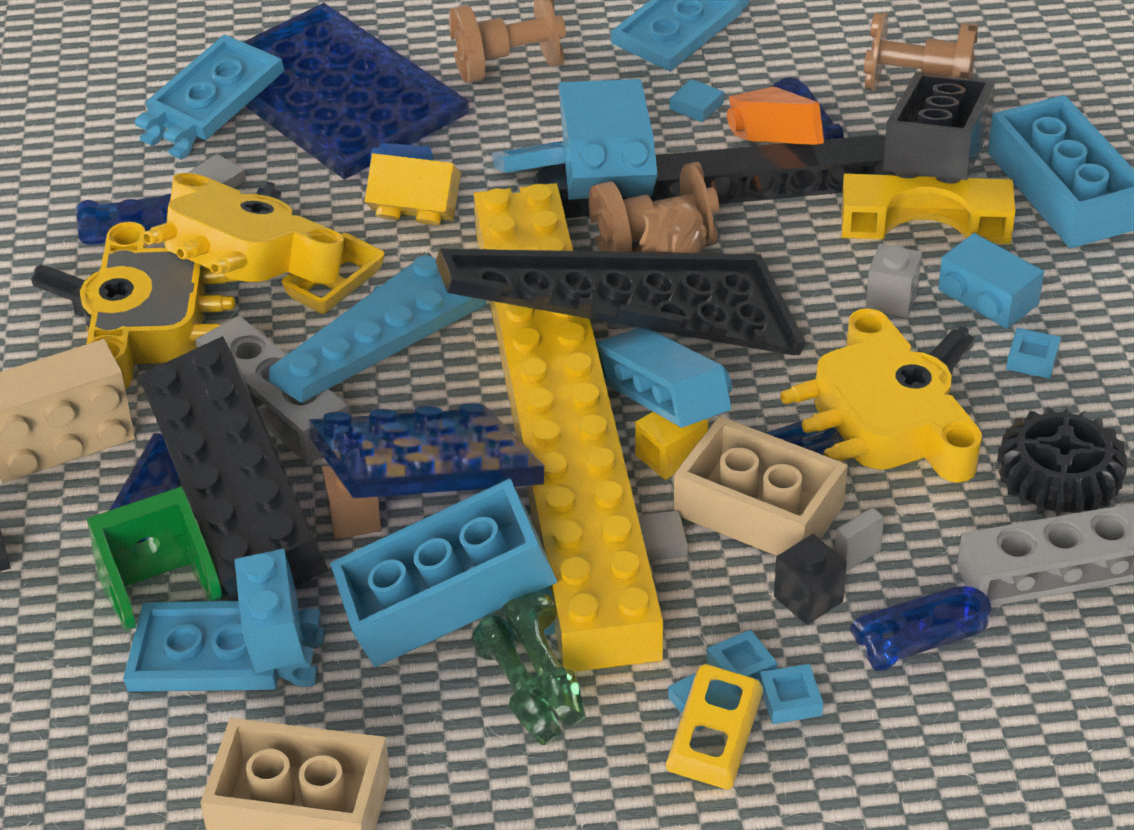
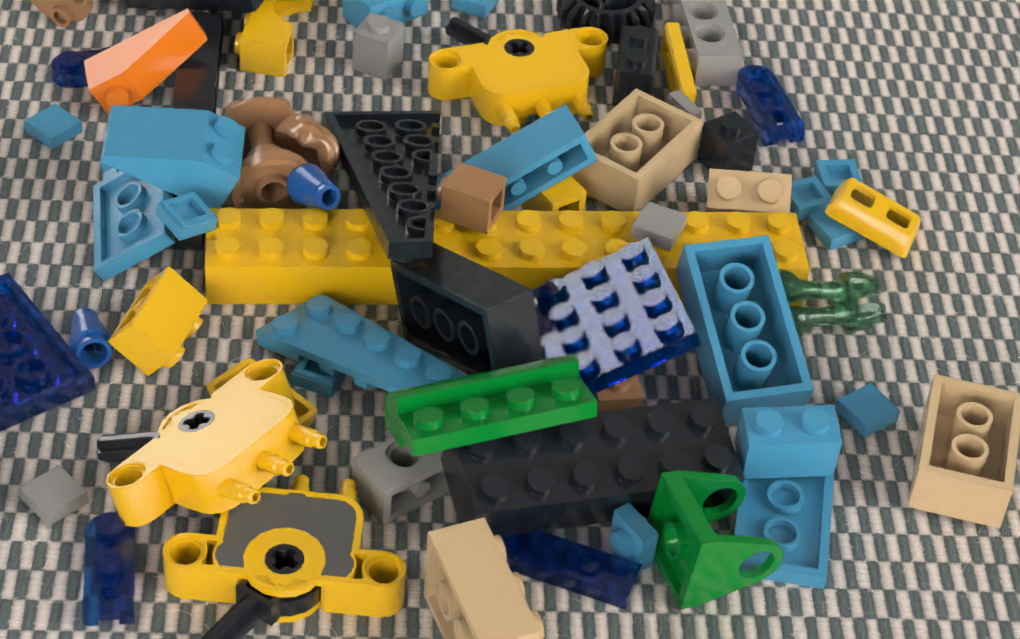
camera: 90 degrees left, 0 degrees up
(249, 356) = (489, 405): none -> green brick
(386, 718) = (867, 410): none -> dark azure tile
(405, 350) = (466, 313): none -> black brick
(525, 163) = (186, 216): none -> dark azure tile
(580, 332) = (471, 197): none -> medium nougat brick
(584, 486) = (660, 225): none -> light grey tile
(585, 233) = (312, 187): none -> blue cone
(698, 591) = (748, 191): none -> tan brick
(938, 489) = (635, 61): none -> black brick
(940, 532) = (676, 61): none -> yellow tile

